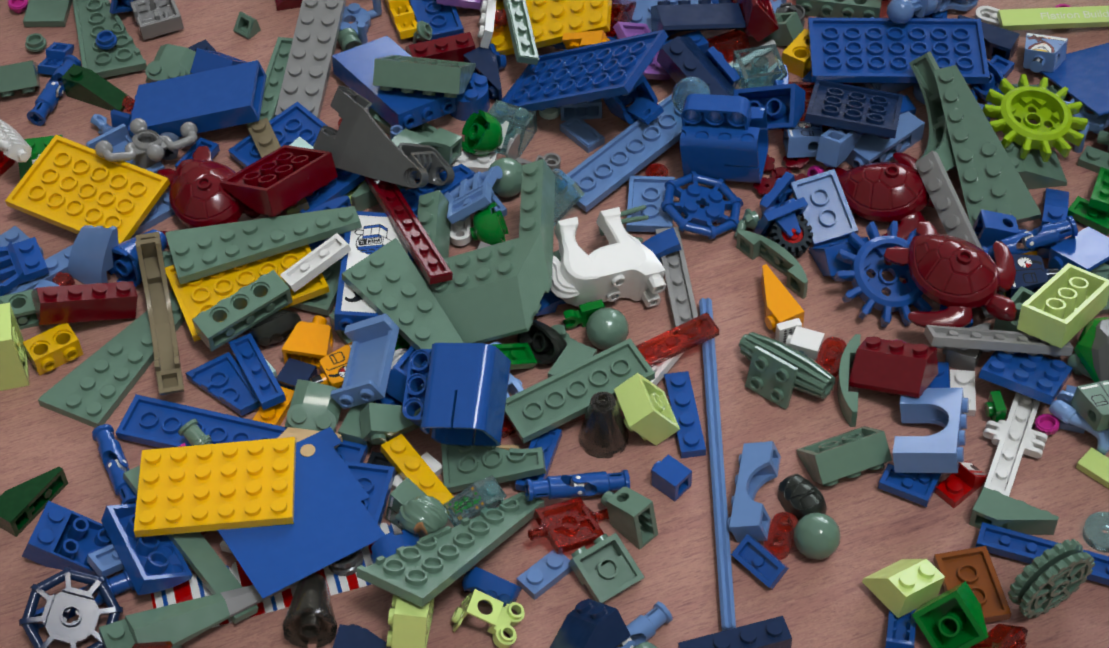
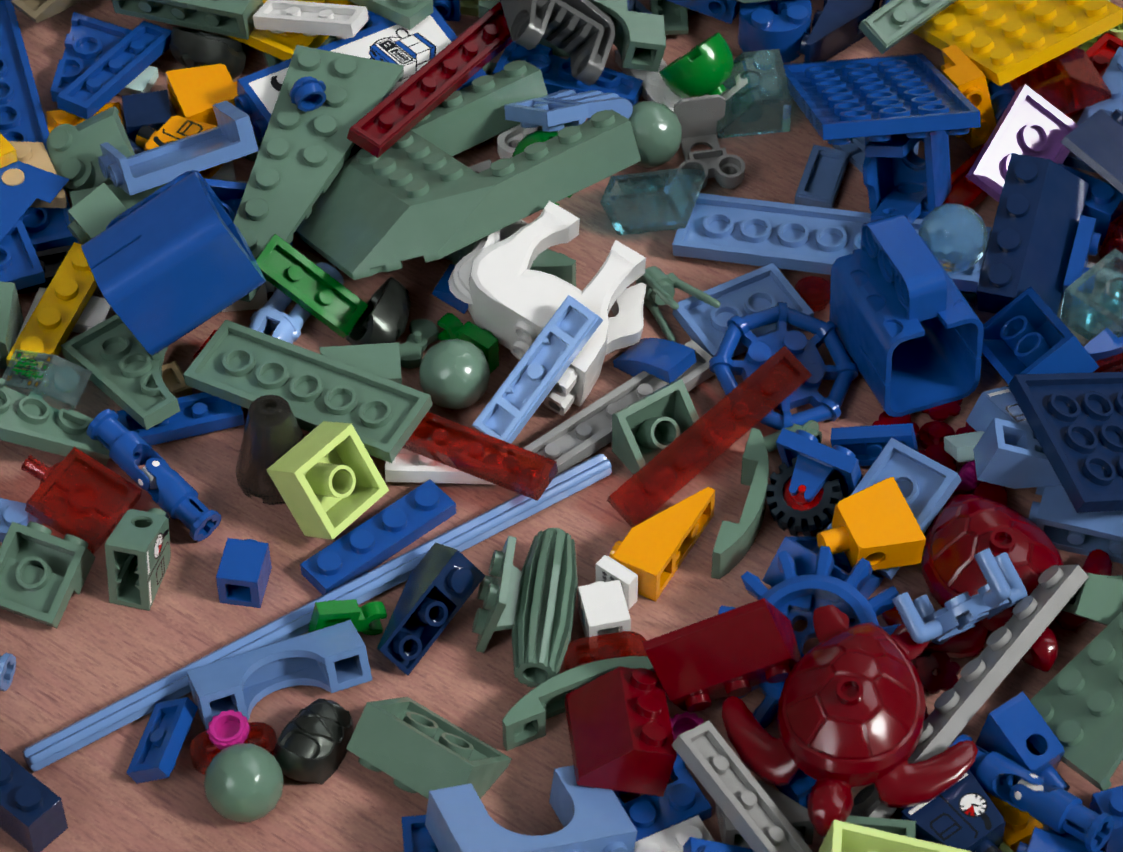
camera: 55 degrees right, 0 degrees up
(388, 282) = (308, 93): none -> blue plate
(650, 287) = (538, 371): none -> light blue plate
(708, 271) = (651, 424): none -> sand green slope
(729, 251) = (709, 437): none -> clear red plate
(732, 451) = (364, 618): none -> green plate
(748, 402) = (427, 605): none -> dark blue slope
(782, 525) = (228, 729): none -> dark pink piece
(806, 163) = (962, 445): none -> light aqua tile
(843, 214) = (875, 527): none -> light orange torso
(885, 302) = (724, 655): none -> dark red slope
(924, 205) = (963, 611): none -> medium blue plate

